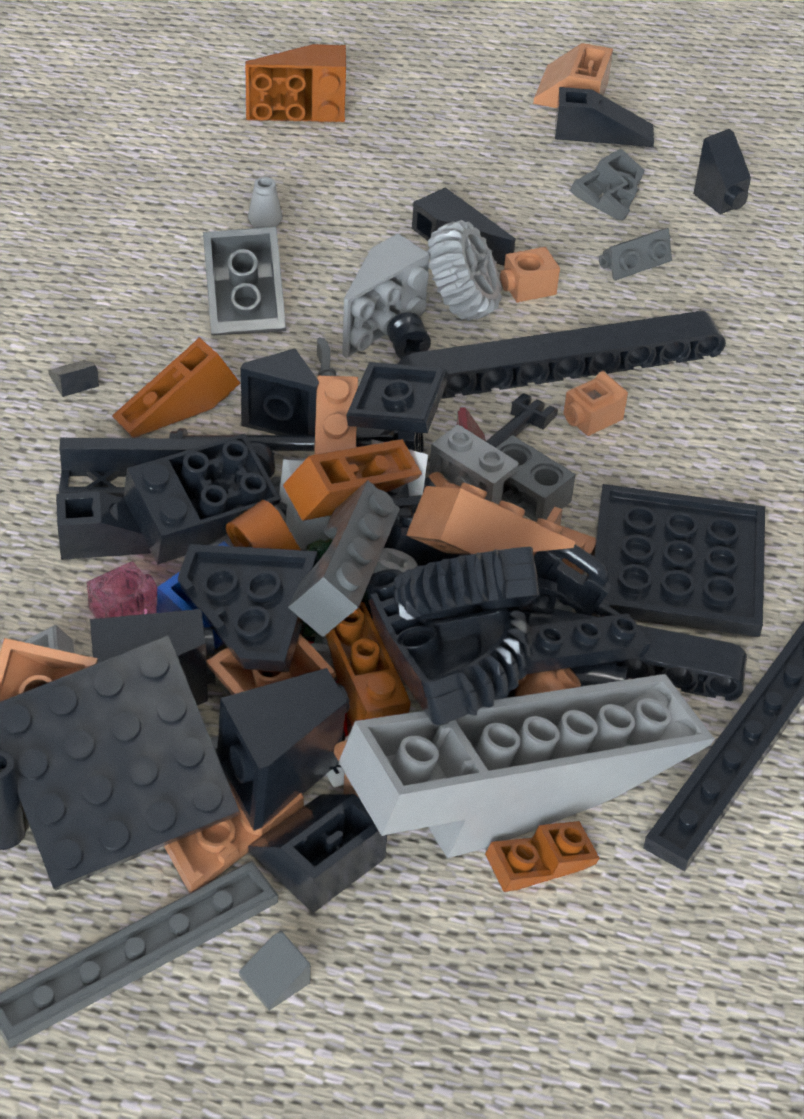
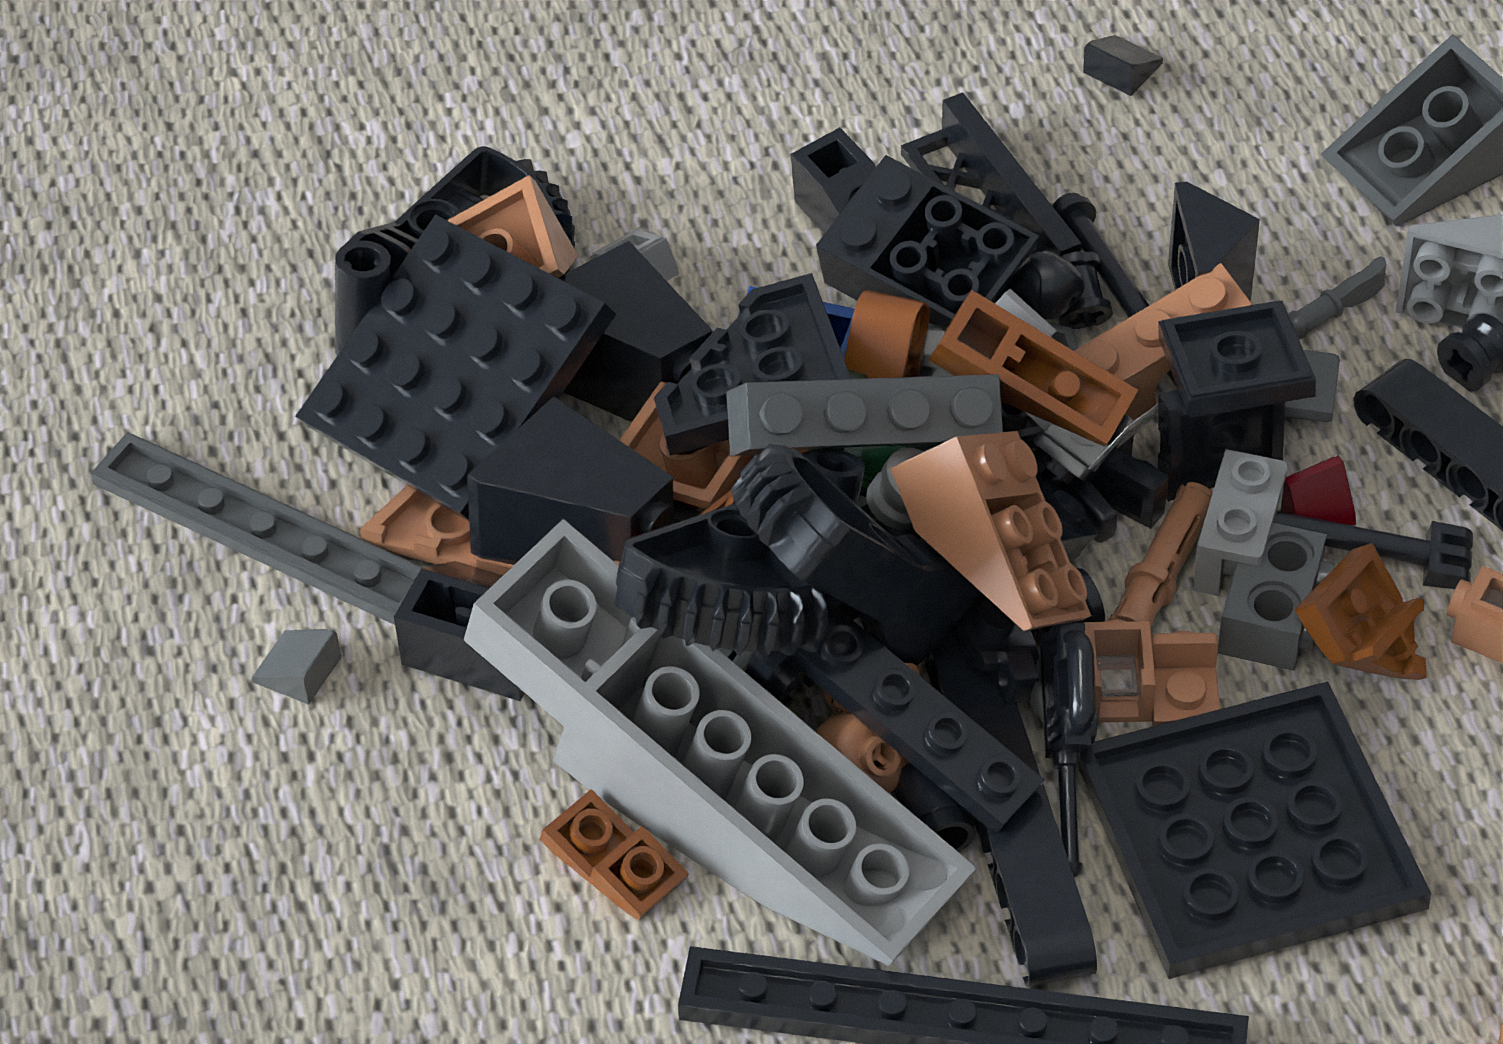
camera: 70 degrees right, 5 degrees up
(122, 593) = (747, 262): clear pink brick -> none
(181, 390) = (1149, 162): dark orange slope -> none
(568, 450) = (1362, 618): none -> dark orange slope

